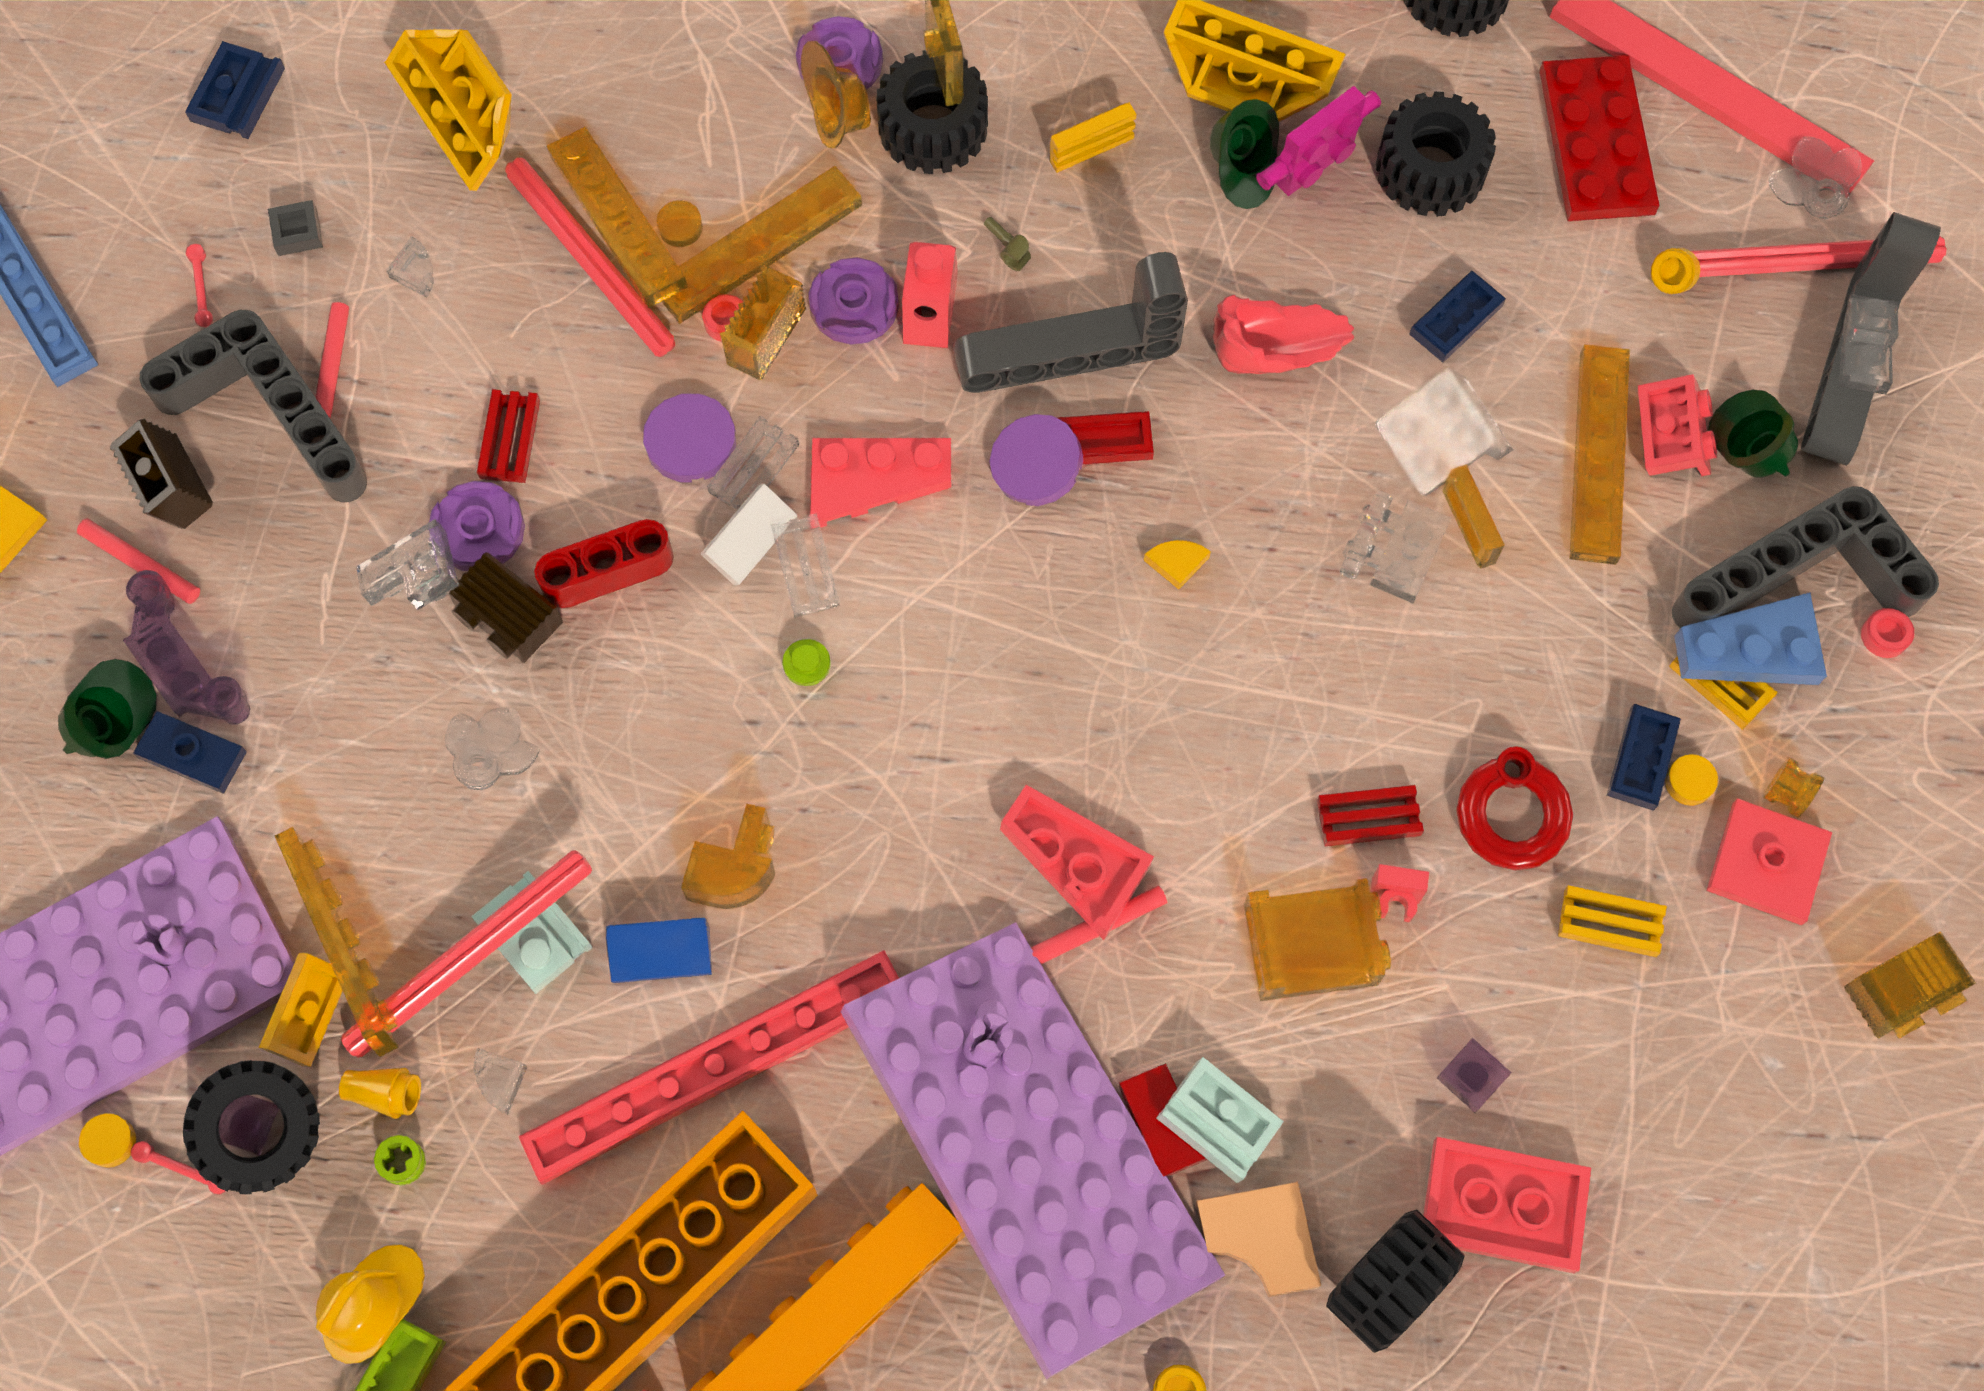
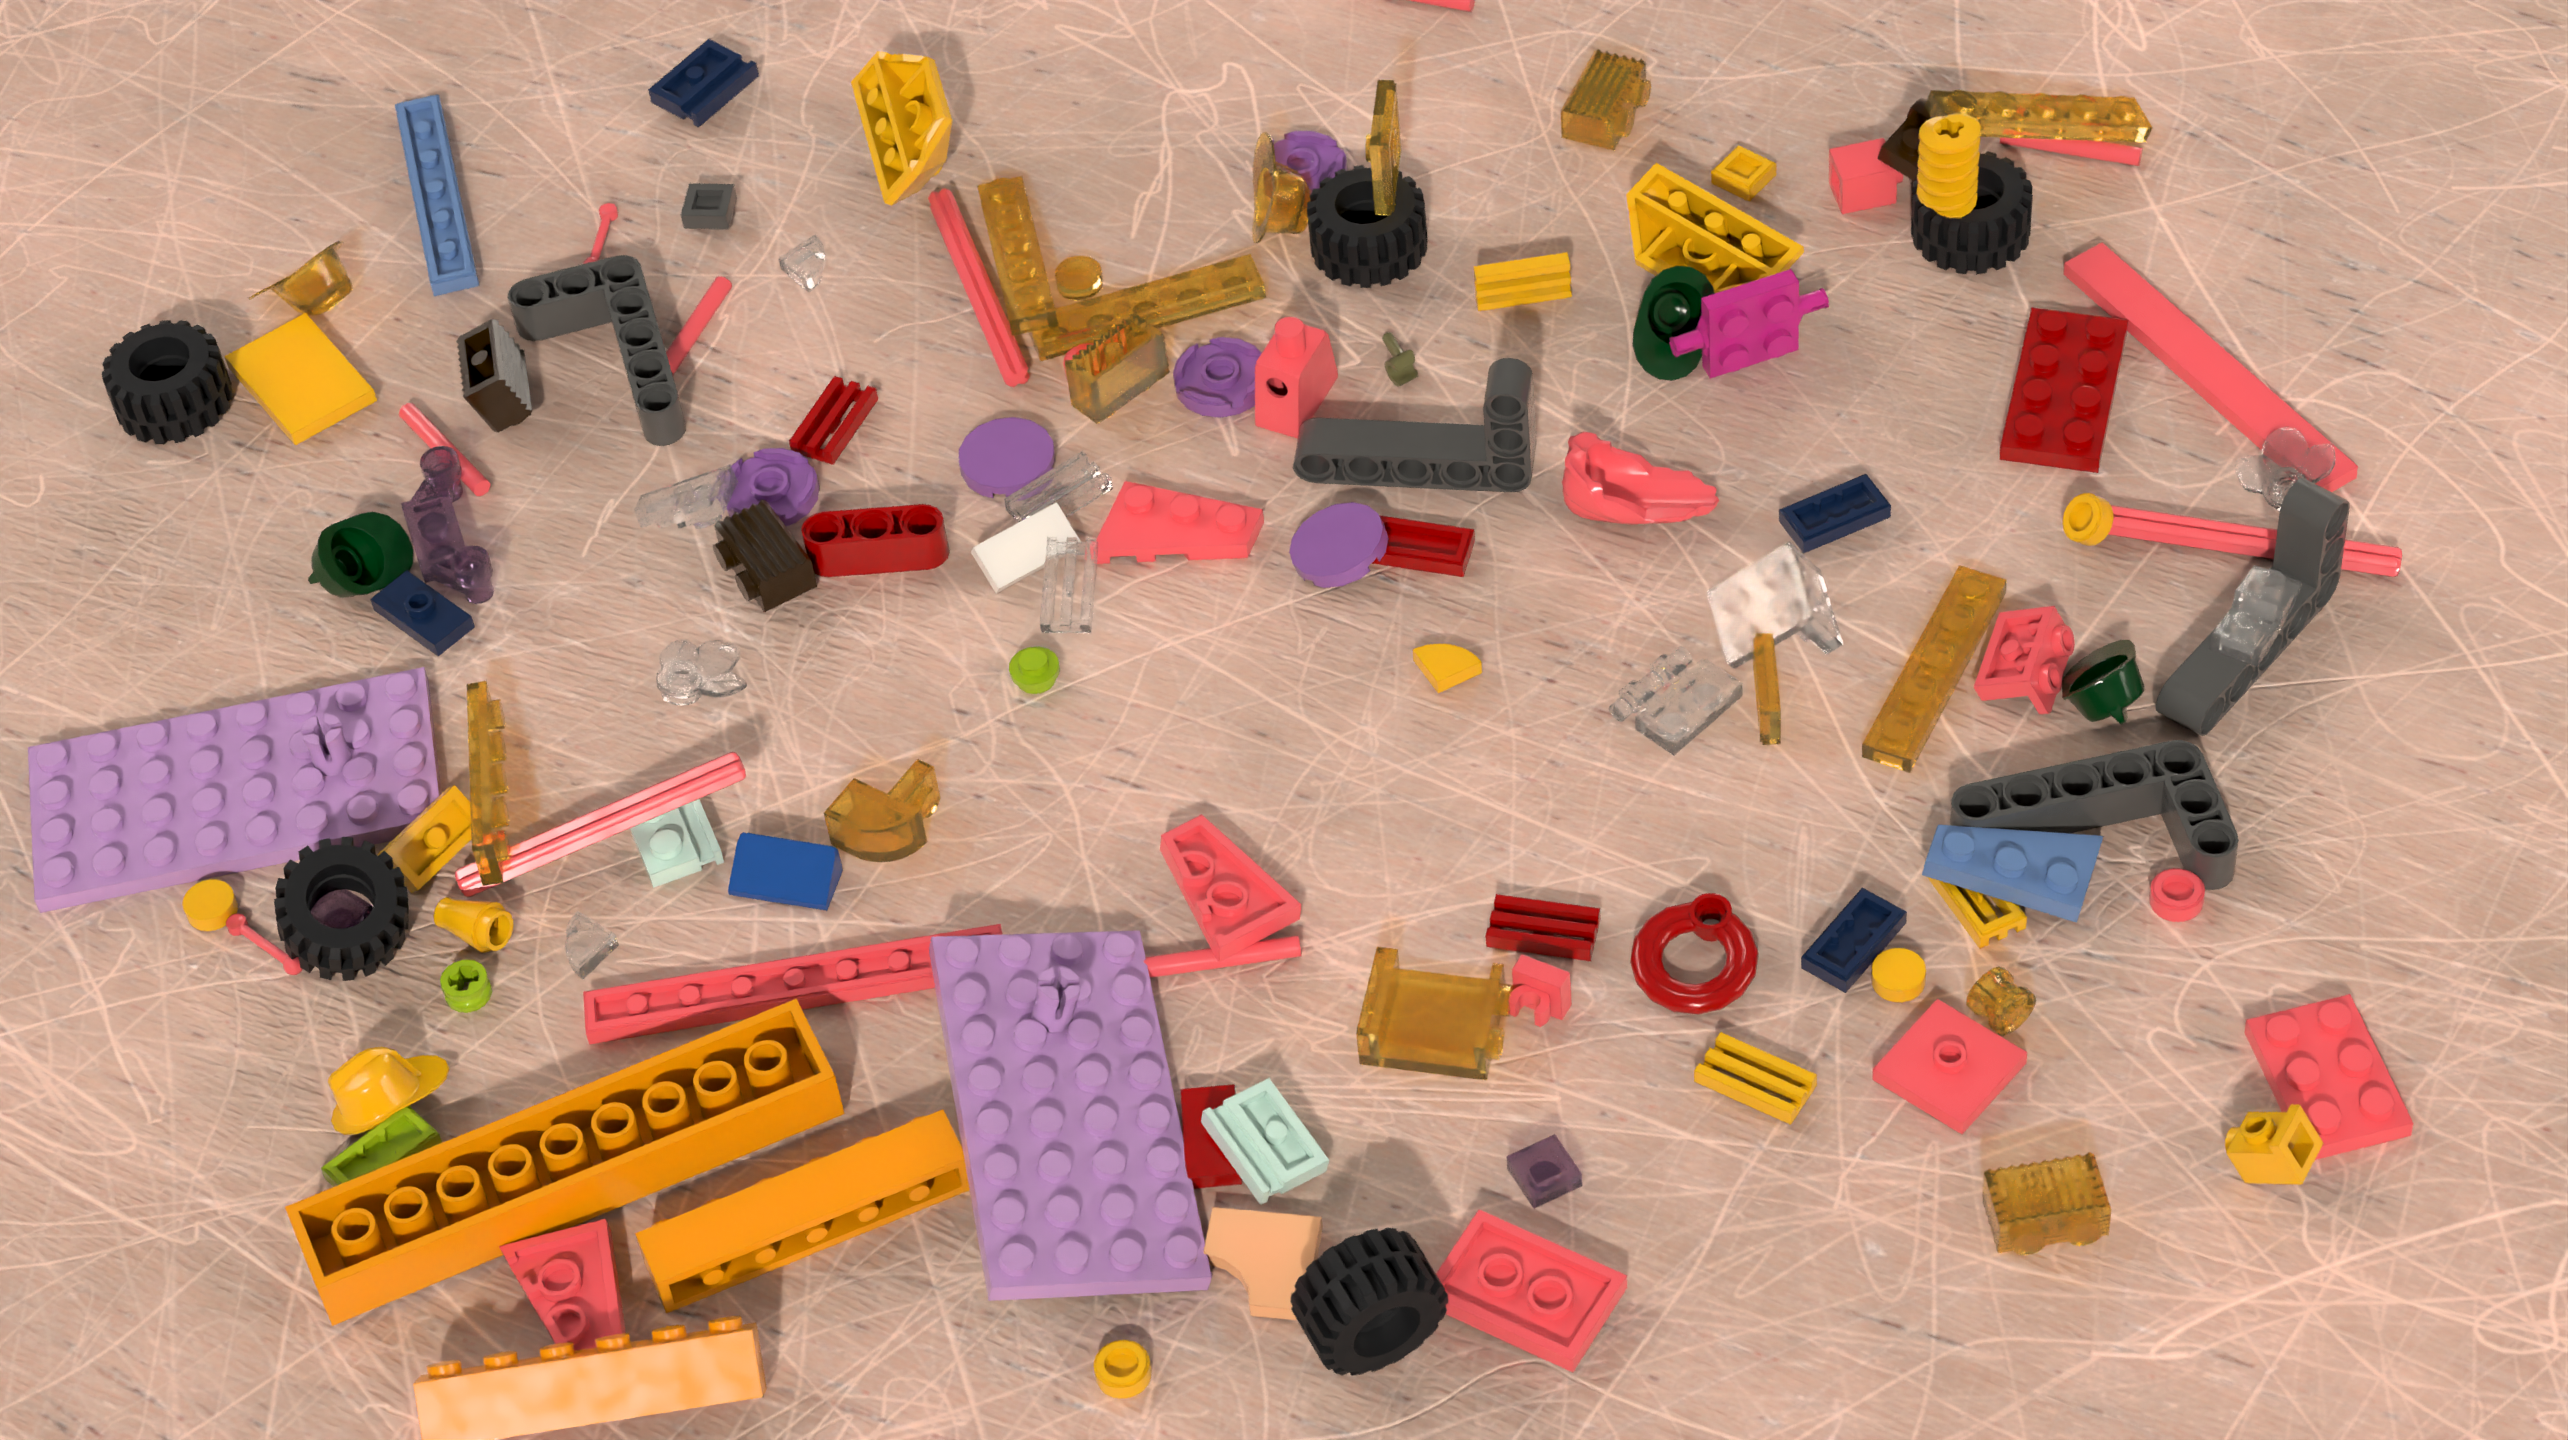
camera: 25 degrees right, 20 degrees down
(1443, 125) = (1871, 362): black tyre -> none

